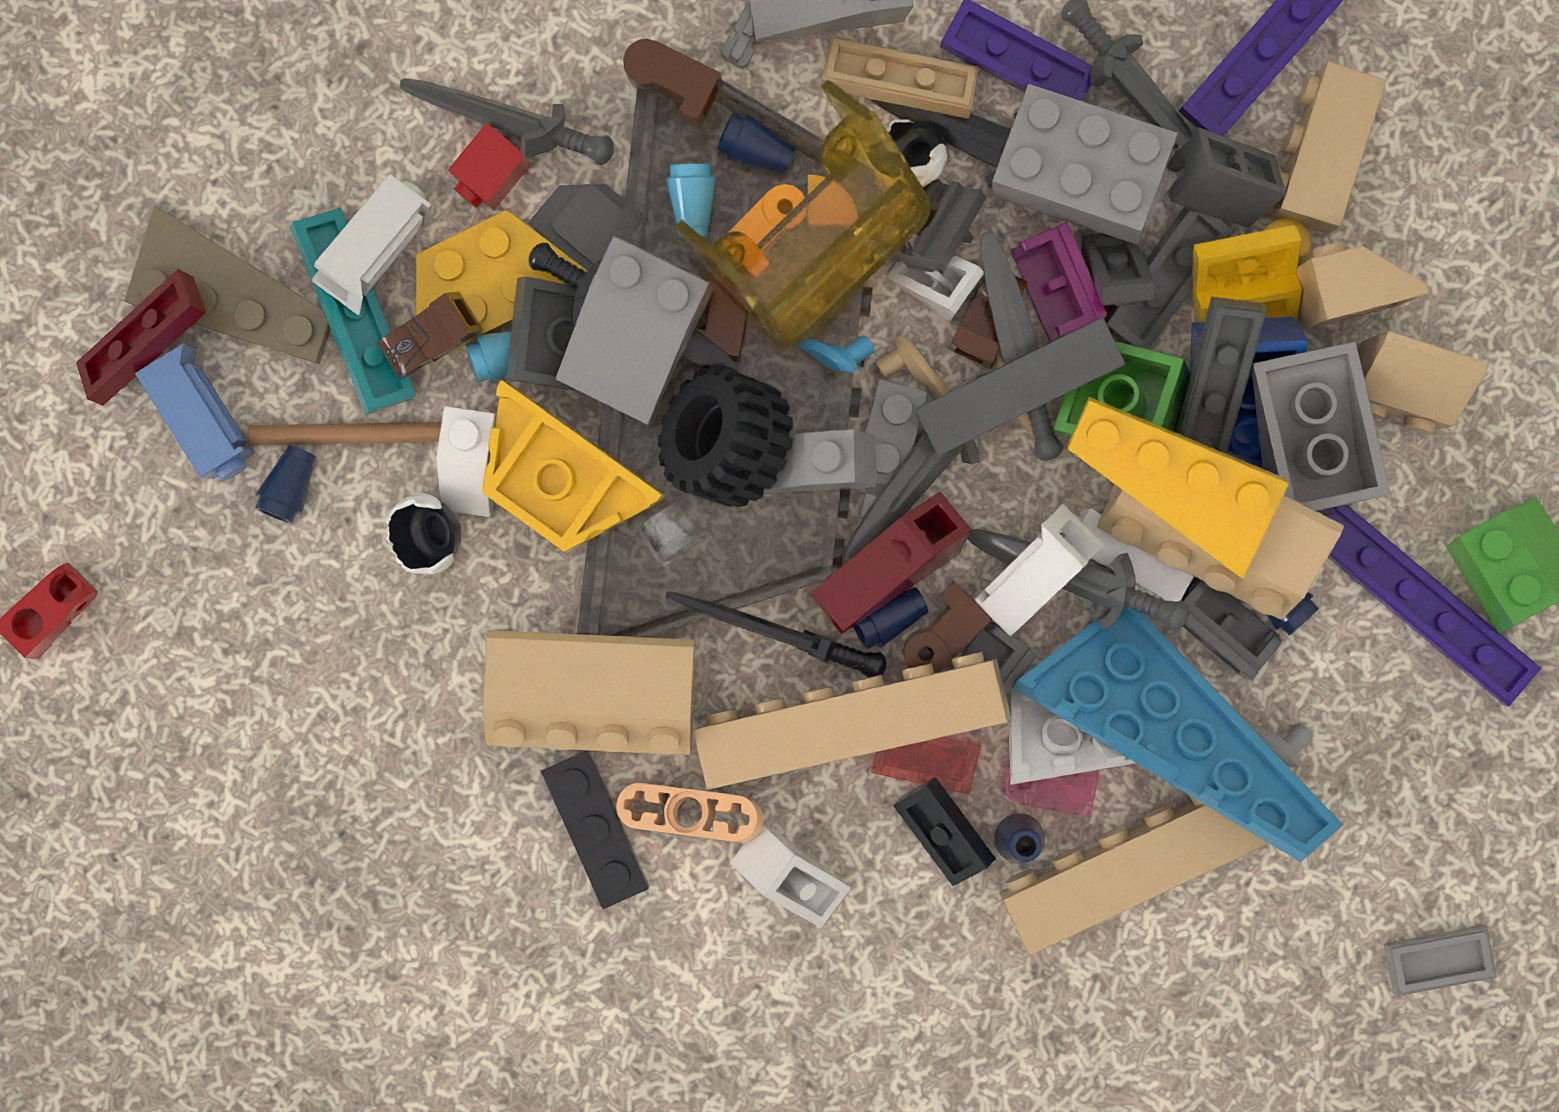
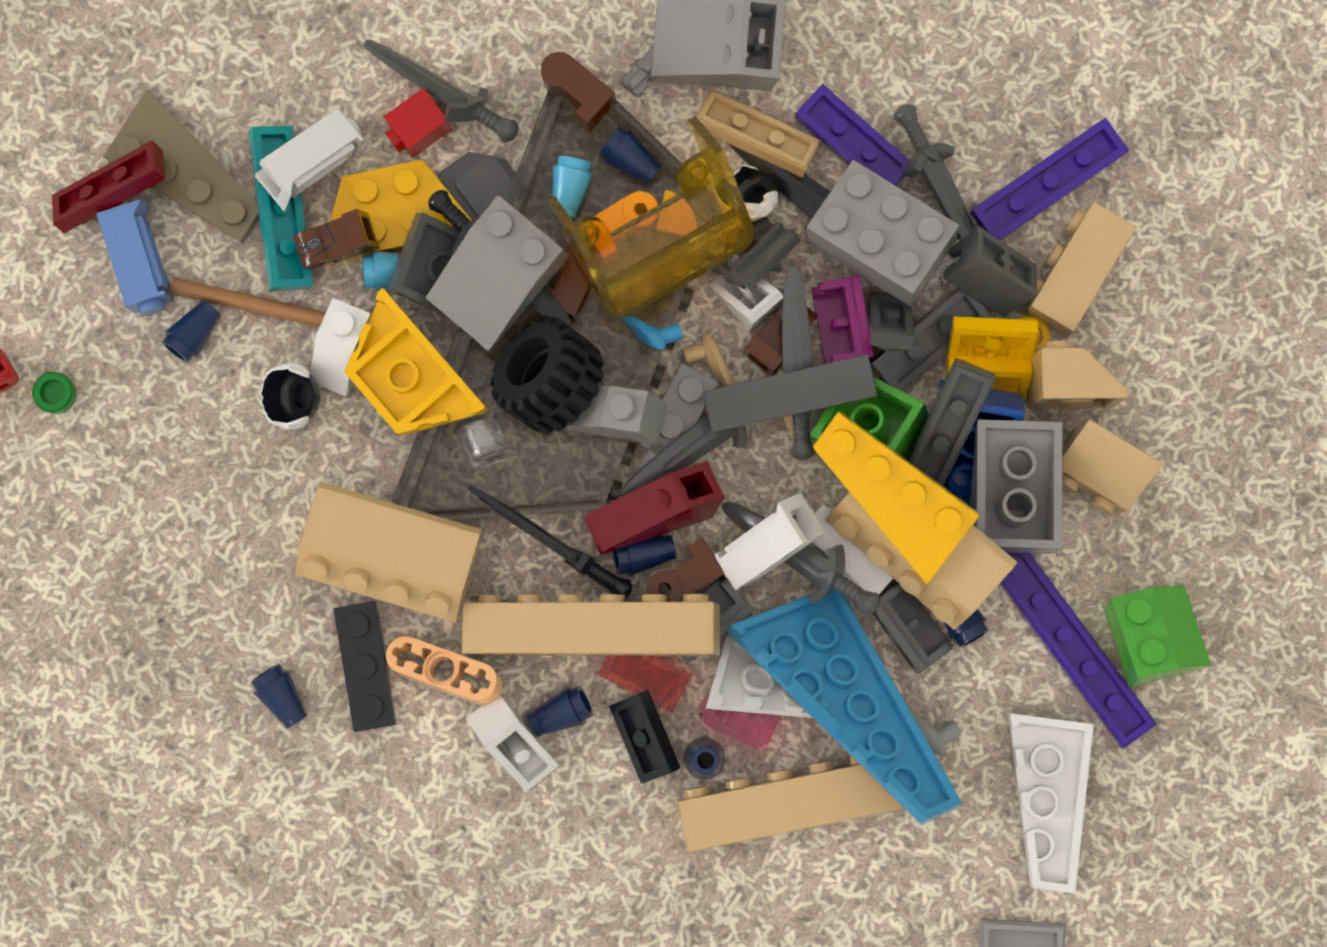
camera: 15 degrees right, 5 degrees down
(143, 598) = (54, 392): none -> green tile
(504, 888) = (279, 695): none -> dark blue cone
(839, 826) = (561, 712): none -> dark blue cone
(1436, 776) = (1052, 788): none -> white wing

